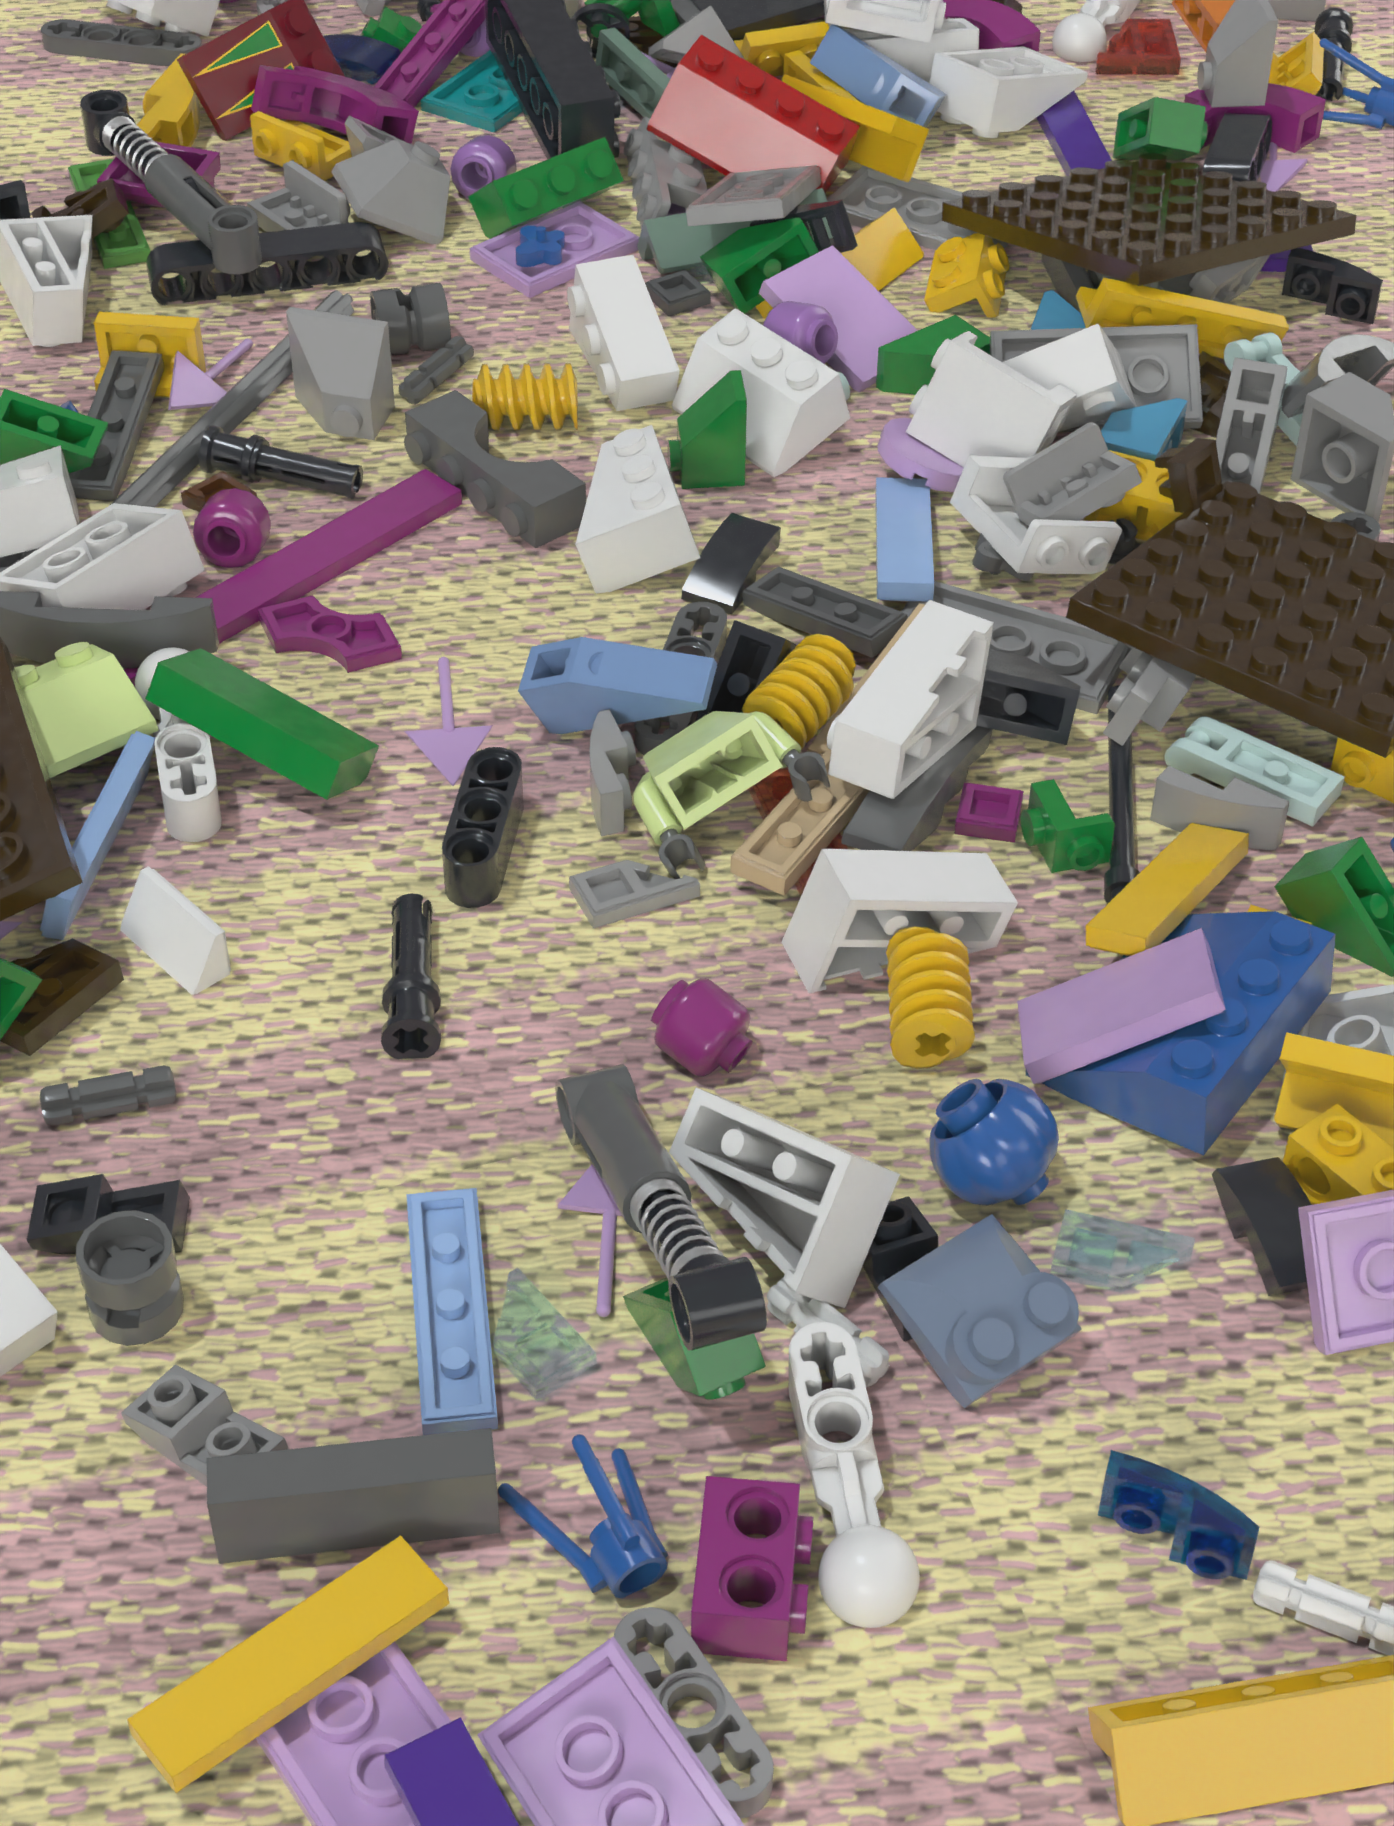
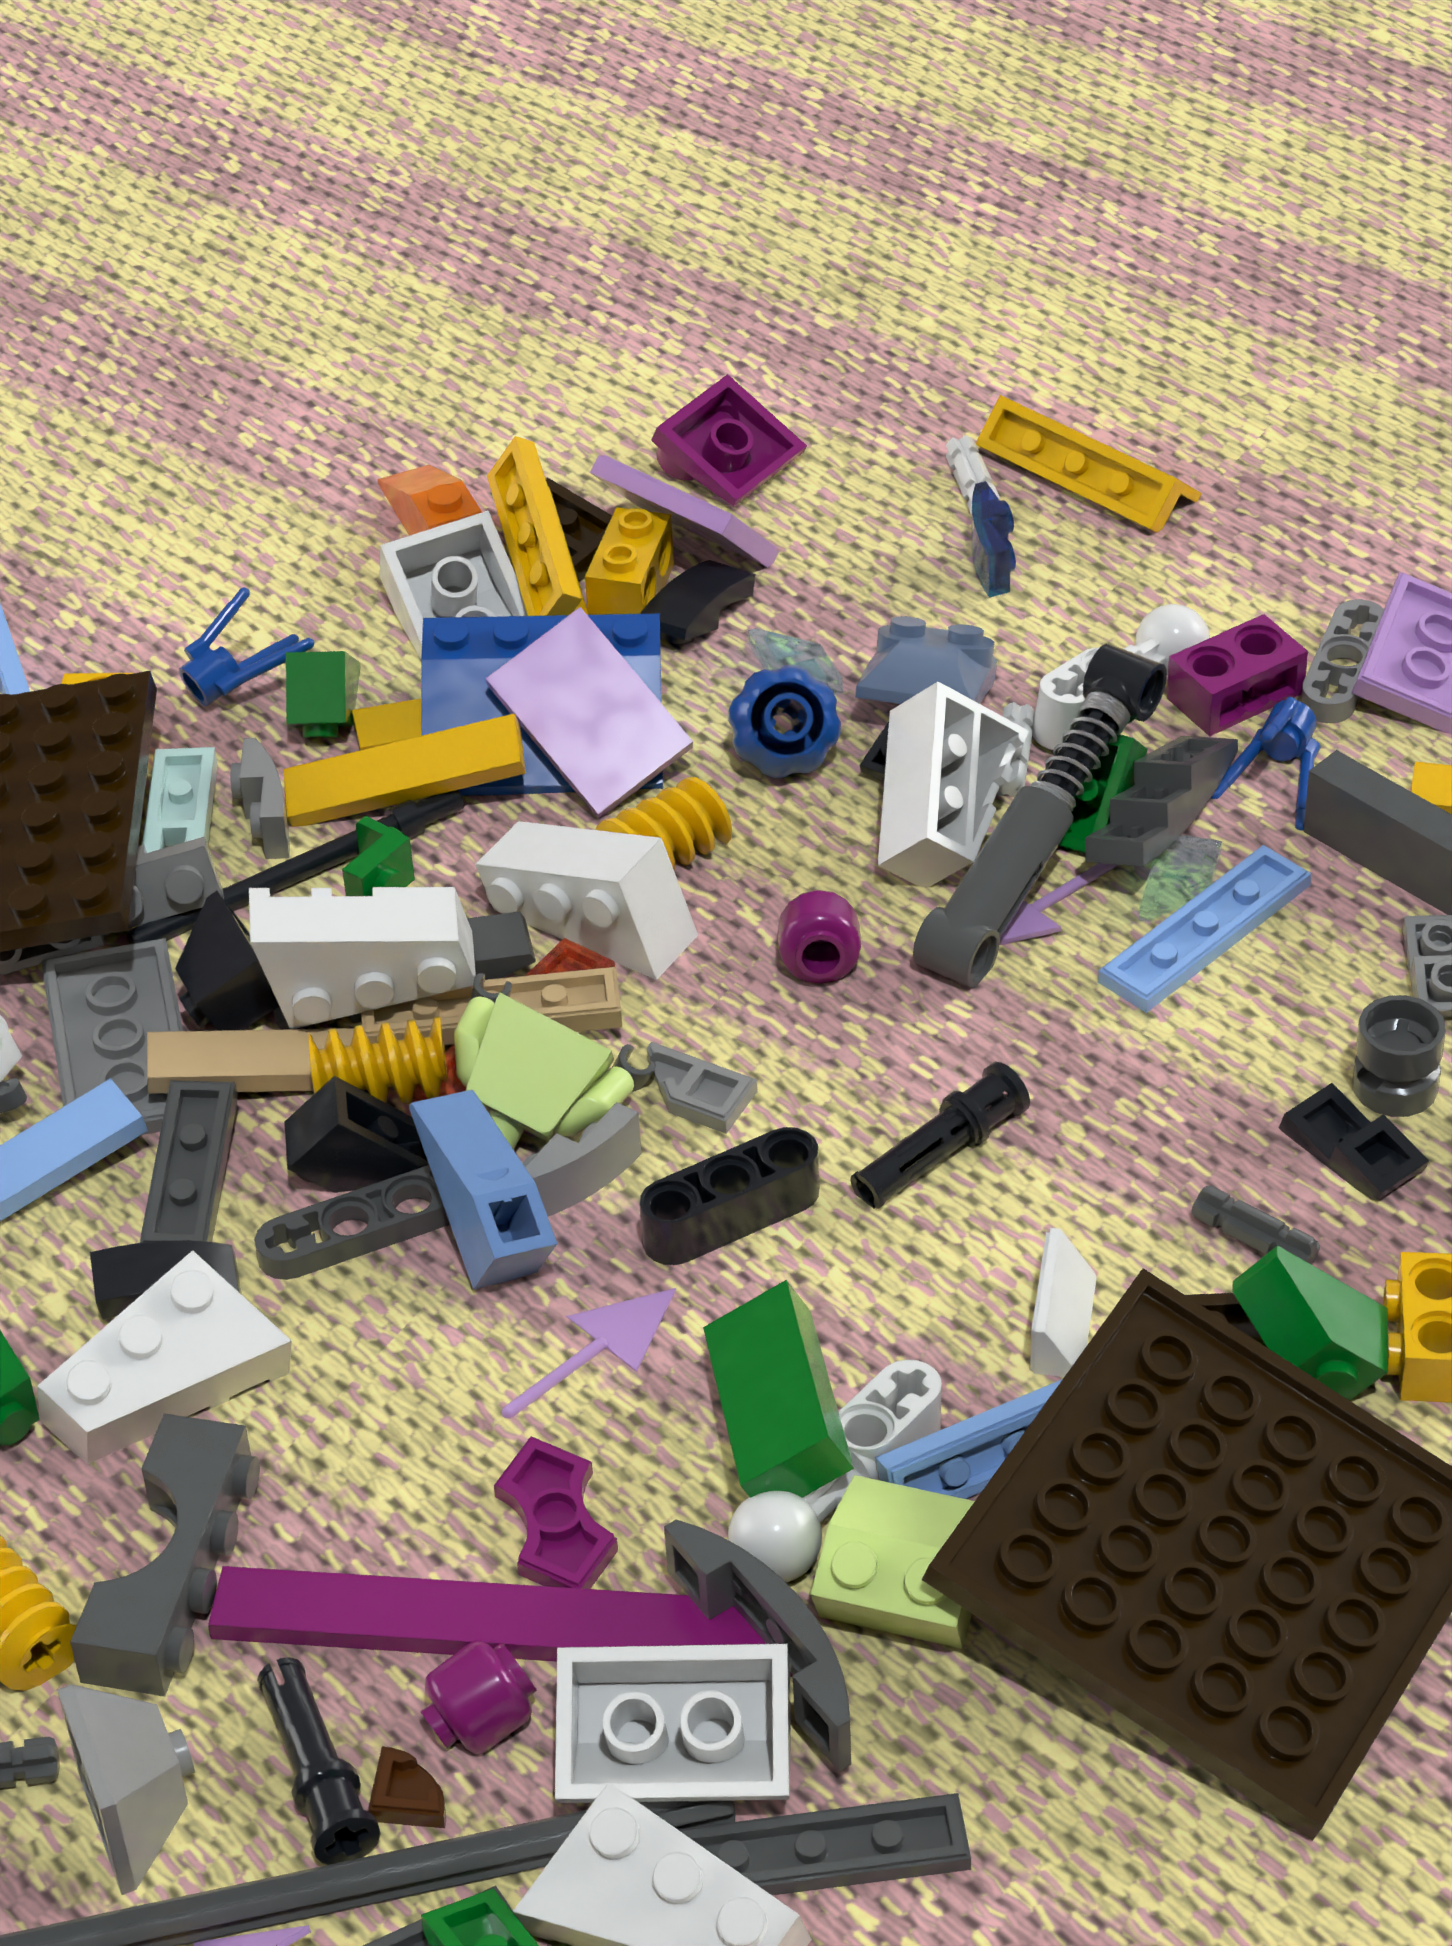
camera: 125 degrees left, 0 degrees up
(623, 1369) = (1164, 802): none -> dark grey slope

